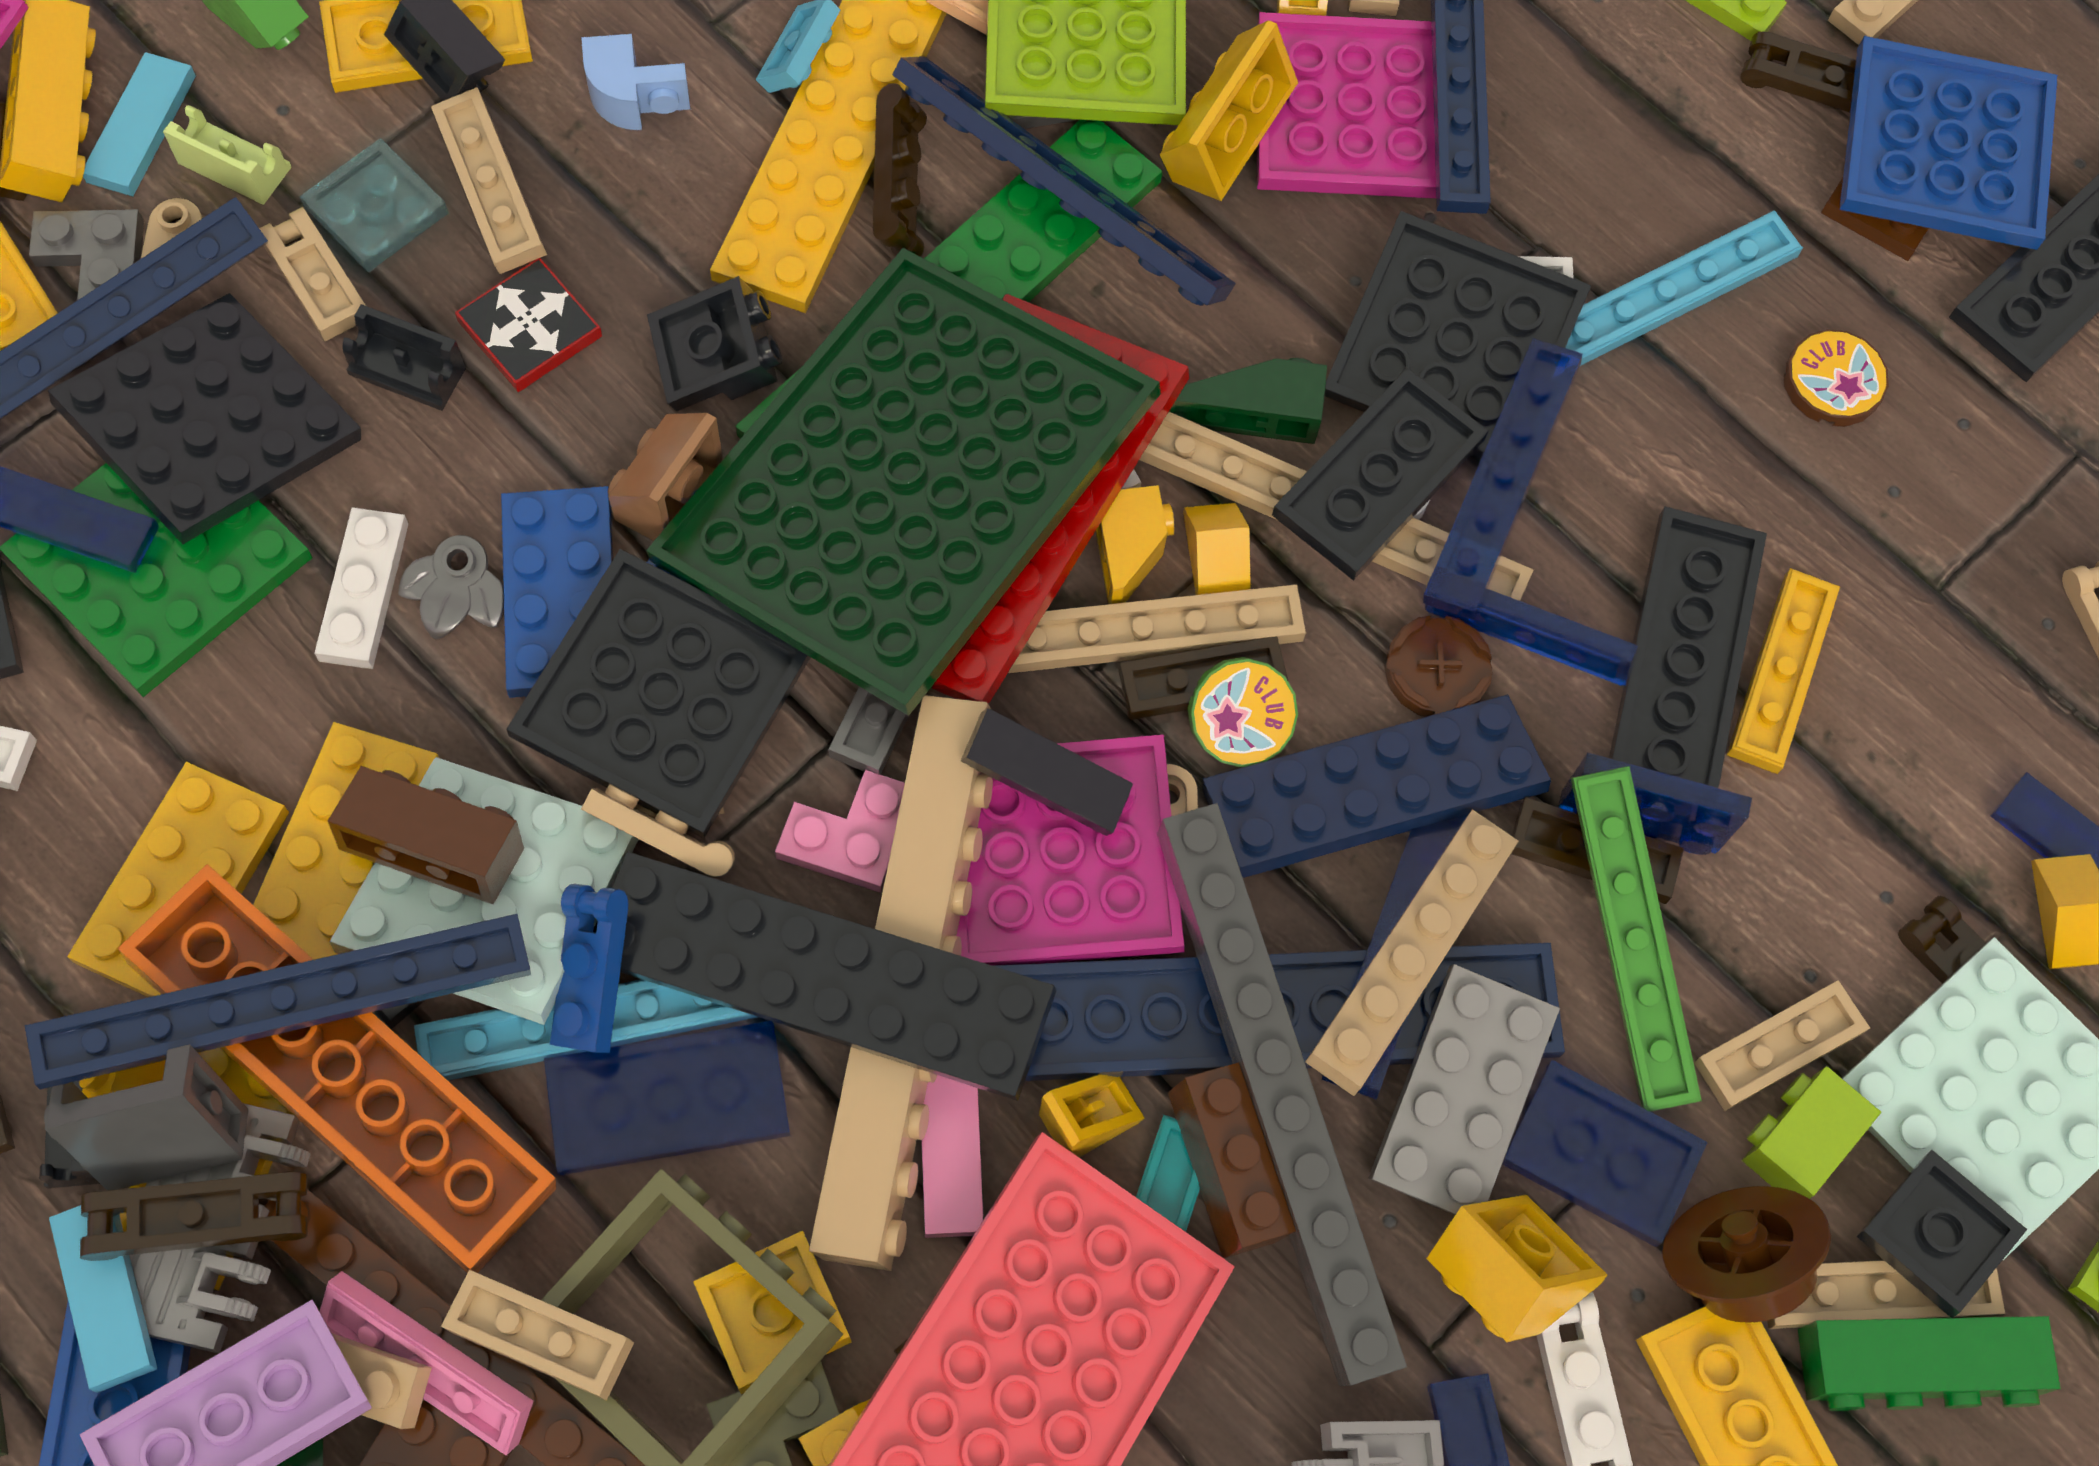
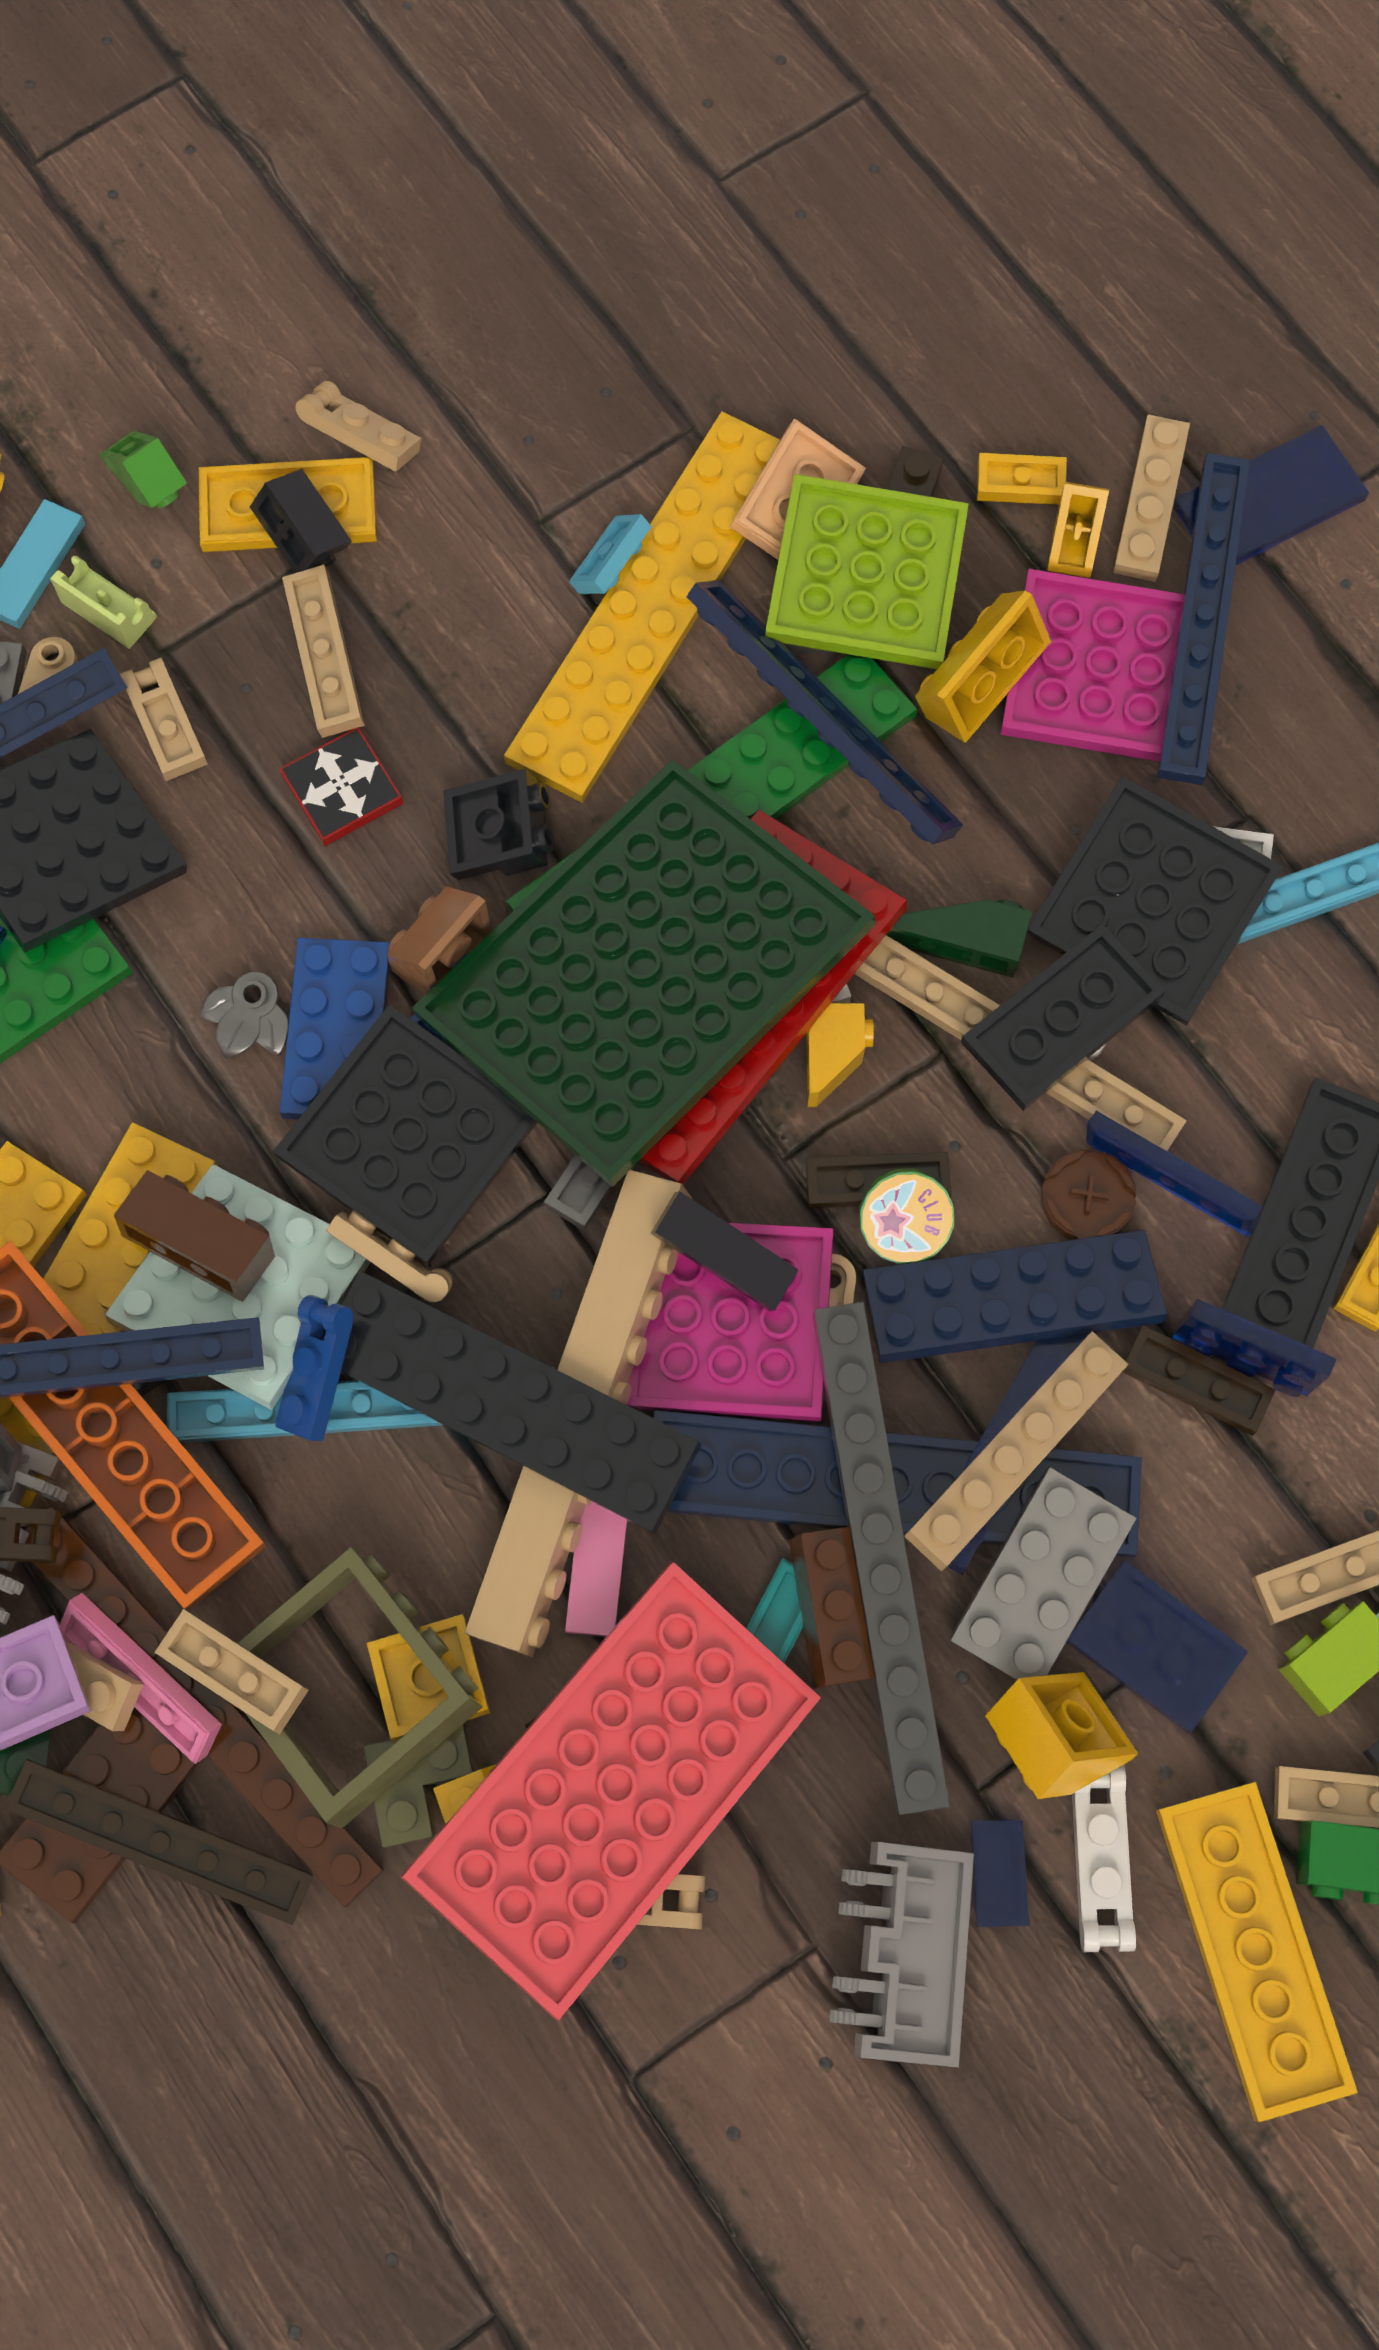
camera: 15 degrees right, 5 degrees up
(361, 588) = (170, 1006): white plate -> none
(374, 205) = (222, 662): clear light blue plate -> none
(403, 358) = (230, 806): black hinge -> none
(625, 91) = (452, 580): light blue brick -> none
(666, 1098) = (367, 1483): clear blue tile -> none
(851, 847) = (548, 1288): bright pink plate -> none
(897, 170) = (679, 684): dark brown plate -> none
(1089, 1113) = (719, 1548): yellow slope -> none
(1161, 627) = (849, 1130): tan plate -> none
(1218, 548) = (910, 1068): yellow slope -> none
(1502, 479) = (1171, 1036): clear blue tile -> none
(1636, 939) = (1214, 1466): bright green tile -> none
(1748, 1252) = (1262, 1752): reddish brown wheel -> none

